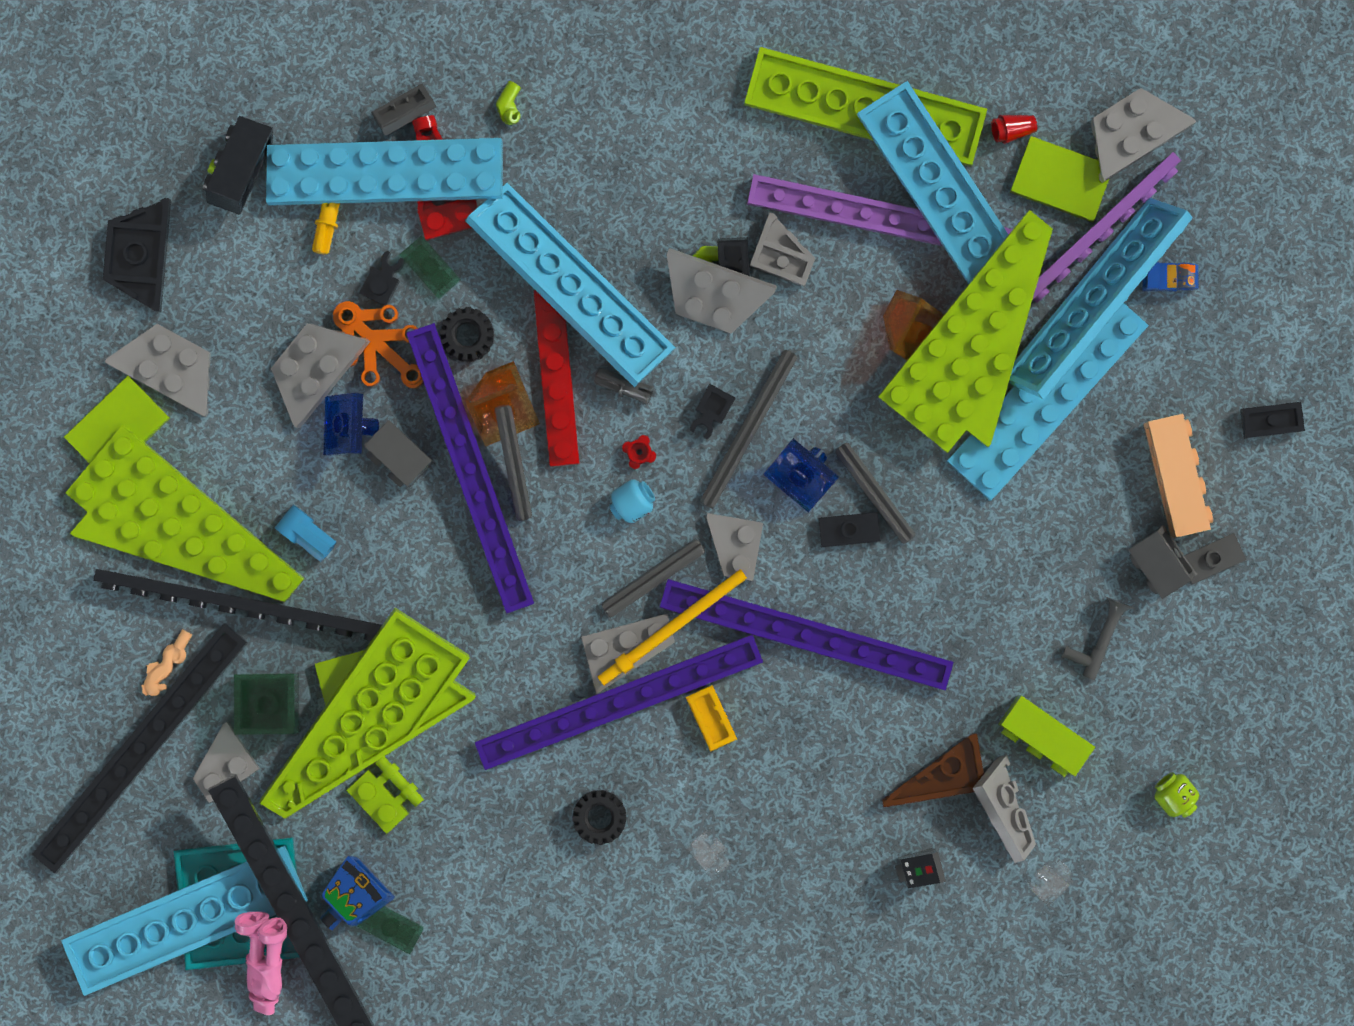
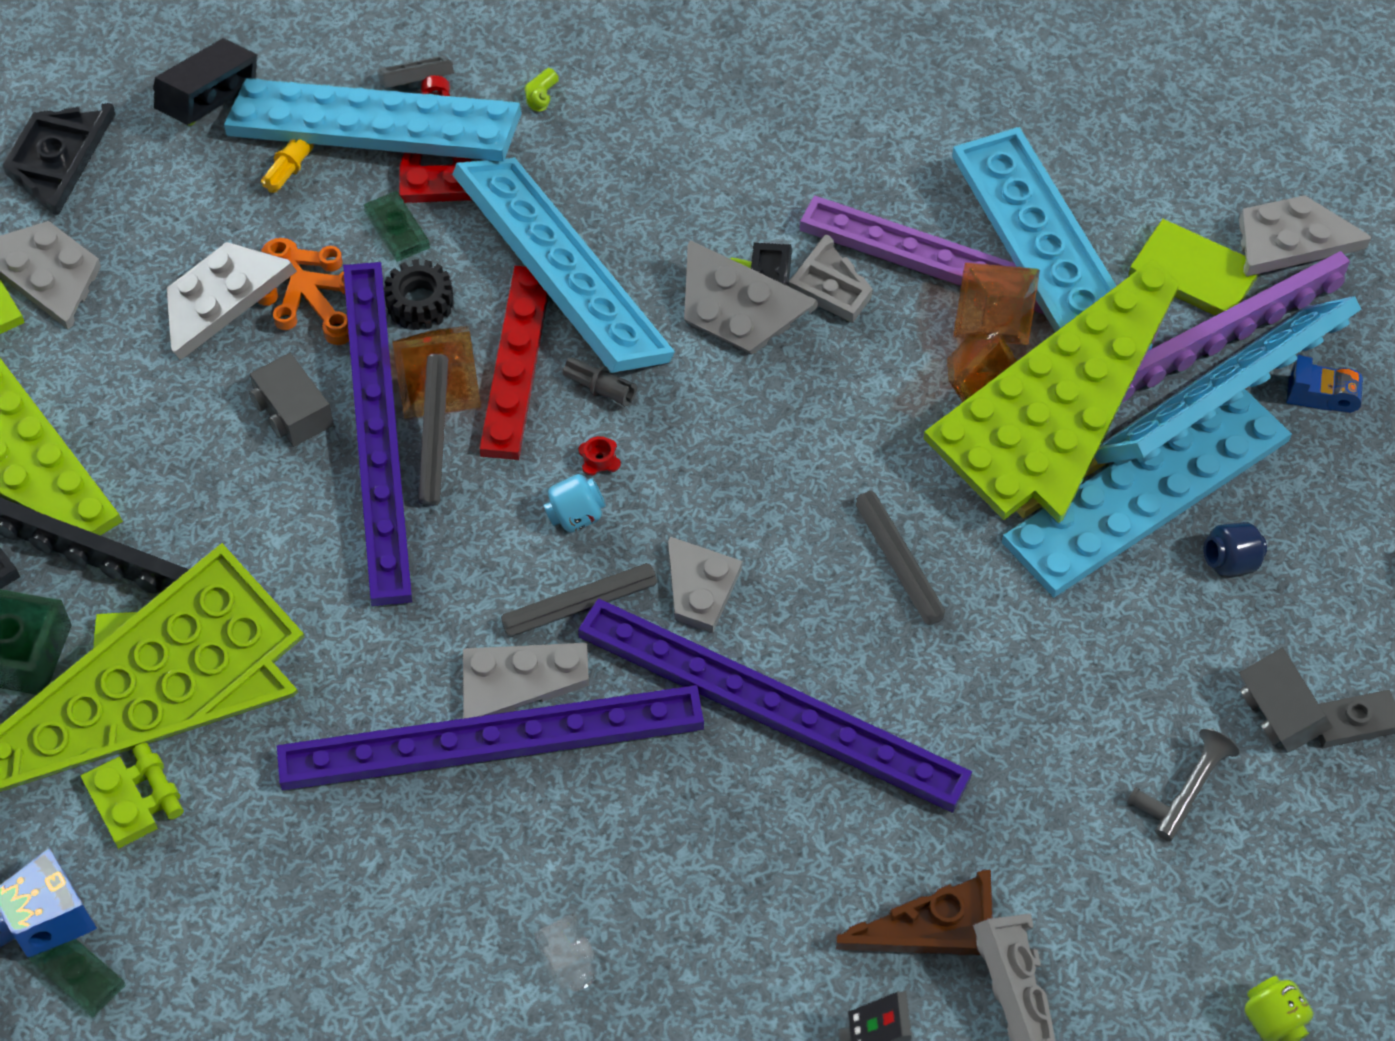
camera: 15 degrees right, 30 degrees down
(301, 530) = (139, 461): dark azure piece -> none
(346, 424) = (235, 350): clear blue tile -> none
(380, 283) = (335, 229): black plate -> none
(592, 834) = (417, 855): black tyre -> none
(625, 661) = (513, 682): yellow bar -> none
(711, 718) = (615, 782): yellow plate -> none
(714, 407) = (705, 422): black plate -> none
(748, 429) = (745, 458): dark grey axle -> none
(801, 474) = (804, 506): clear blue tile -> none
(835, 96) = (924, 145): lime plate -> none
(849, 529) = (856, 593): black plate -> none
(913, 260) = (997, 301): none -> clear orange slope
(1012, 127) = (1140, 206): red cone -> none
(1045, 737) = (1091, 894): lime brick -> none
(1116, 439) = (1235, 549): none -> dark blue head
(1177, 475) = (1316, 606): light nougat brick -> none

